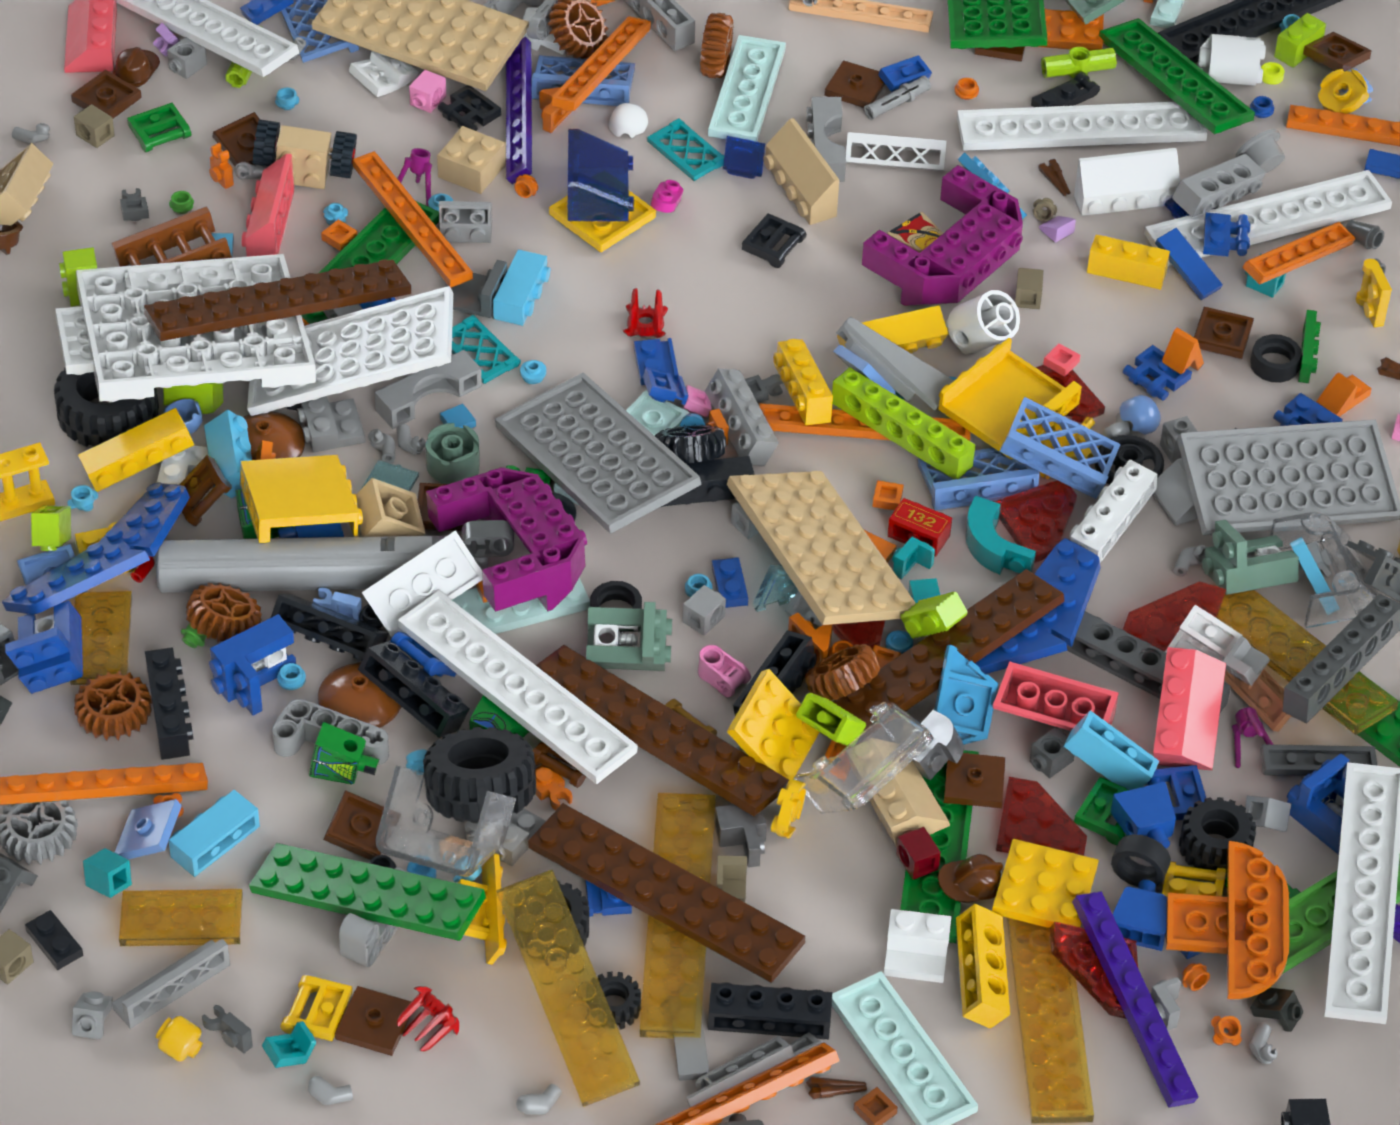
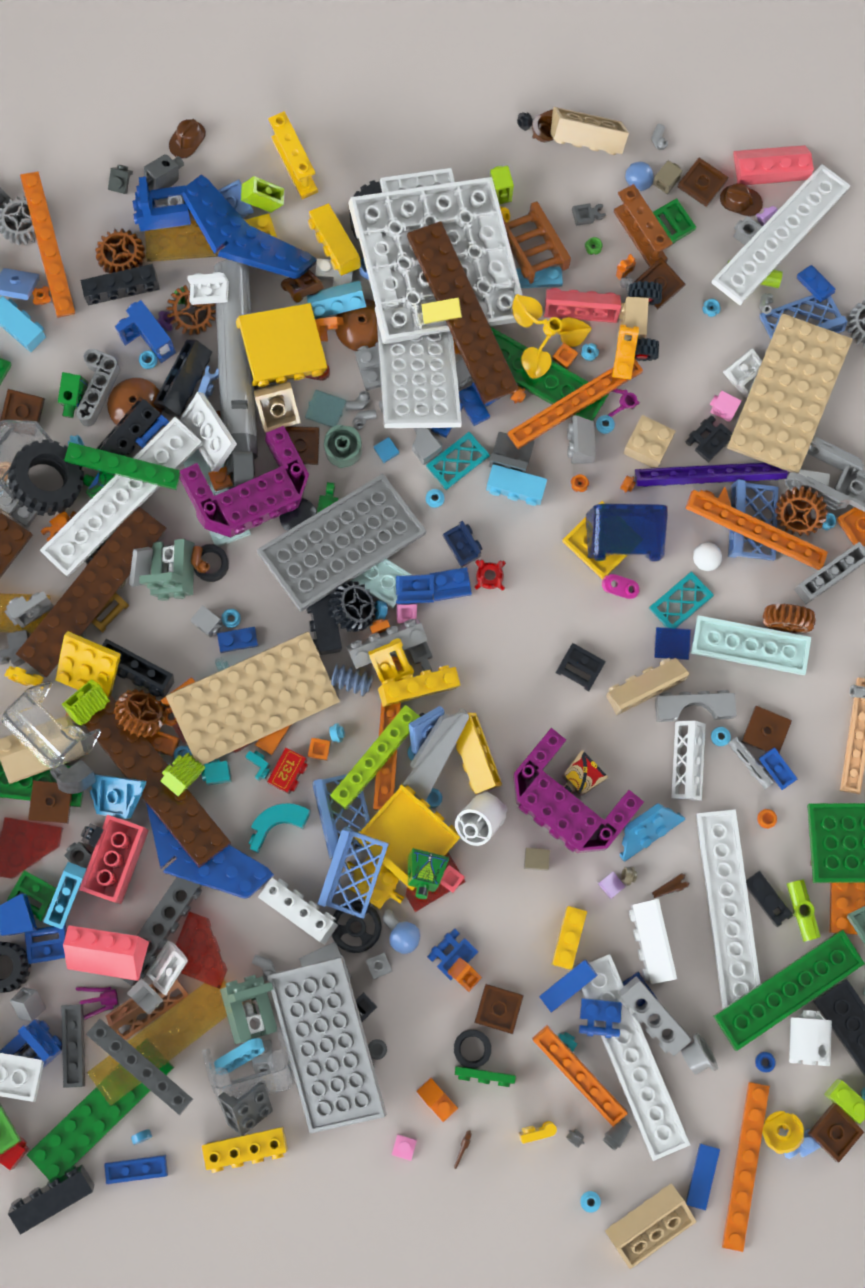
camera: 90 degrees right, 30 degrees up
(82, 498) = (301, 210): medium azure plate -> none
(84, 154) = (640, 175): none -> medium blue hair
(175, 158) = (642, 225): none -> dark orange fence
(205, 566) = (208, 288): none -> white bracket
(280, 307) = (441, 310): none -> light yellow tile
(308, 226) = (572, 332): none -> yellow plant
(352, 154) = (625, 352): none -> light orange plate
(472, 673) = (122, 466): none -> green plate
(521, 230) = (579, 478): none -> orange plate
(601, 340) = (462, 544): none -> dark blue bracket
(620, 671) = (140, 565): none -> light grey tile
(627, 600) = (200, 565): none -> dark orange arm
(689, 787) = (25, 612): none -> light grey plate
(721, 670) = (150, 635): bright pink piece -> none
(772, 401) = (384, 663): none -> yellow plate
(792, 451) = (351, 680): none -> sand blue piece
(864, 123) = (714, 736): none -> medium azure plate
(865, 476) = (337, 733): none -> medium azure plate
(1021, 728) = (91, 834): none -> black plate
(1038, 516) = (299, 856): clear red plate -> none
(1057, 367) = (425, 871): none -> green torso
(1272, 73) = (811, 1074): neon yellow tile -> none
(1304, 411) = (414, 1073): blue plate -> none

